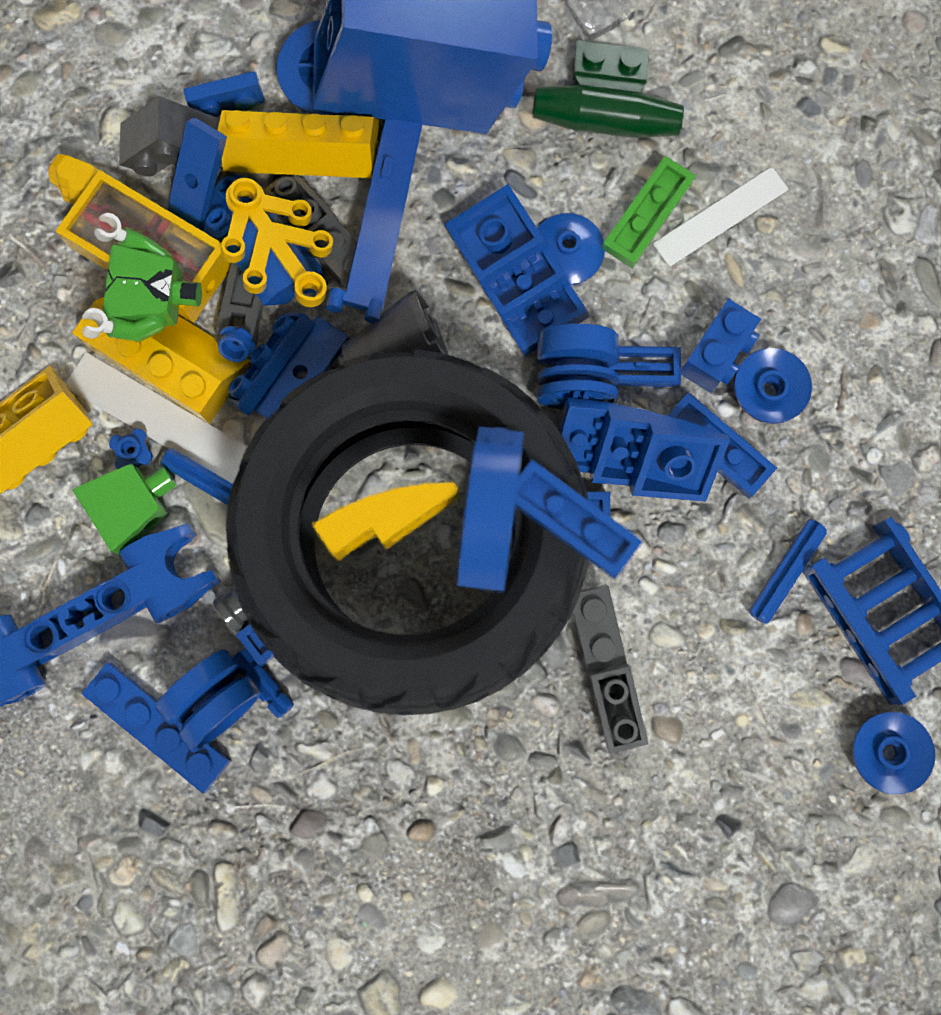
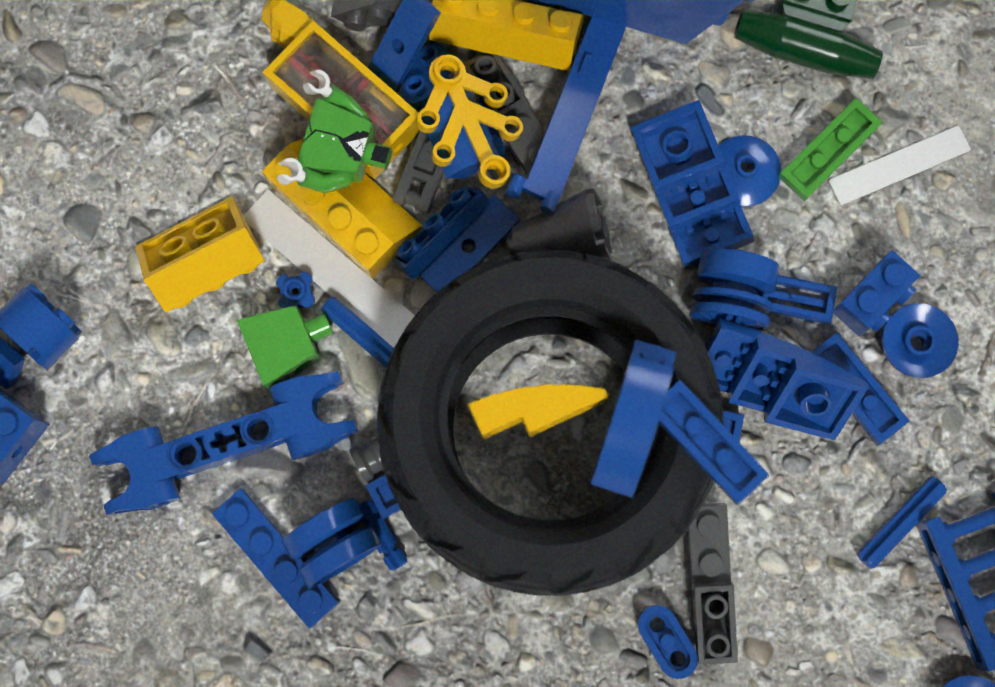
camera: 15 degrees right, 0 degrees up
(235, 343) = (412, 208): blue plate -> none
(573, 736) = (666, 641): none -> blue plate

